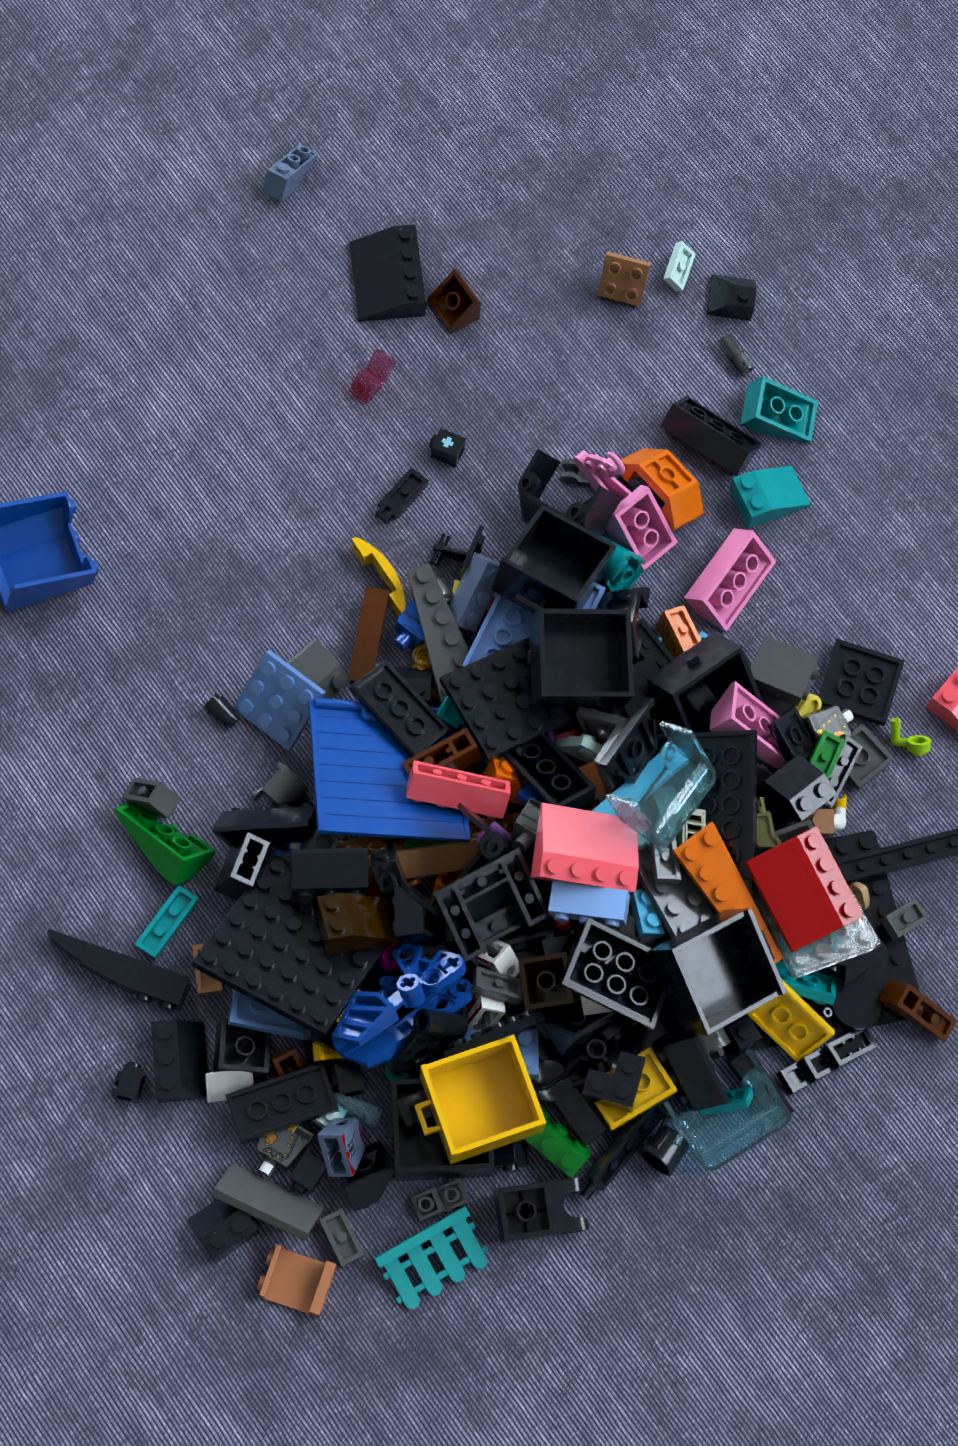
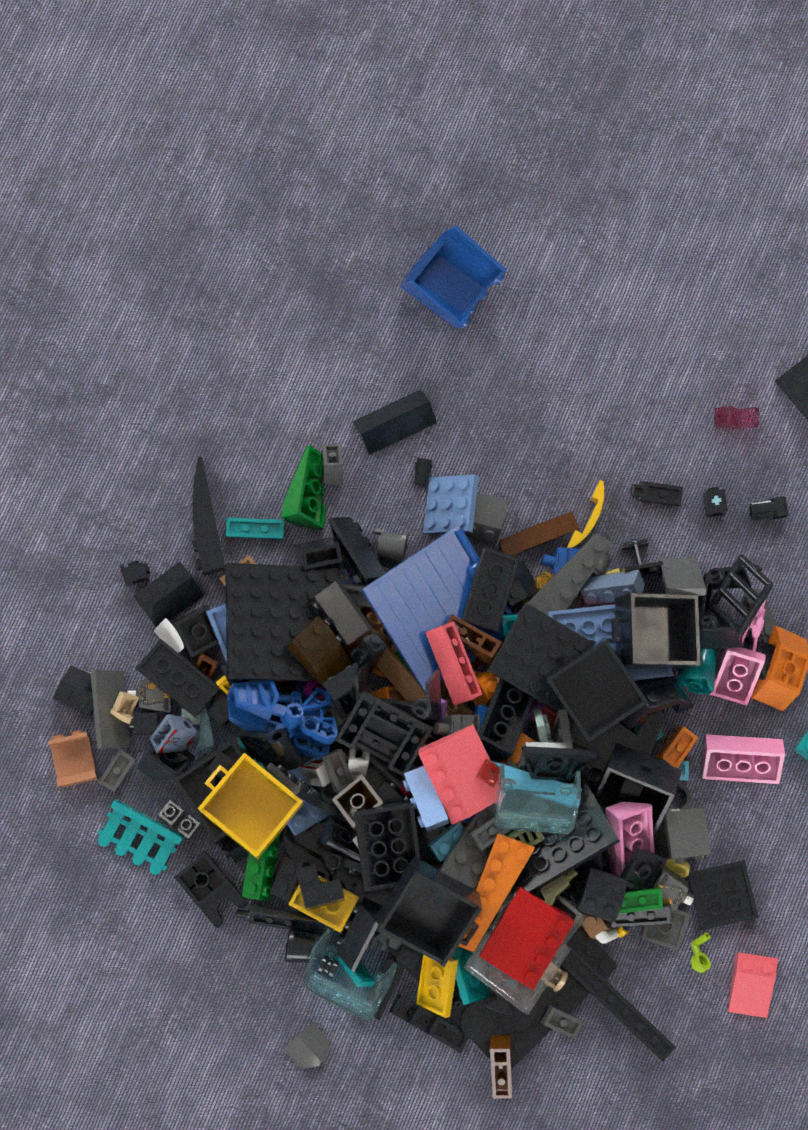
camera: 55 degrees right, 10 degrees up
(148, 707) = (395, 422): none -> black slope
(276, 1182) = (124, 706): none -> tan tile
(489, 397) = (773, 508): none -> black piece
(509, 515) = (682, 576): none -> dark grey tile
(586, 447) = (758, 599): none -> black bar
(603, 818) = (489, 773): none -> clear red tile
(704, 1130) = (327, 966): none -> black wheel
(779, 1208) = (308, 1047): none -> dark grey slope

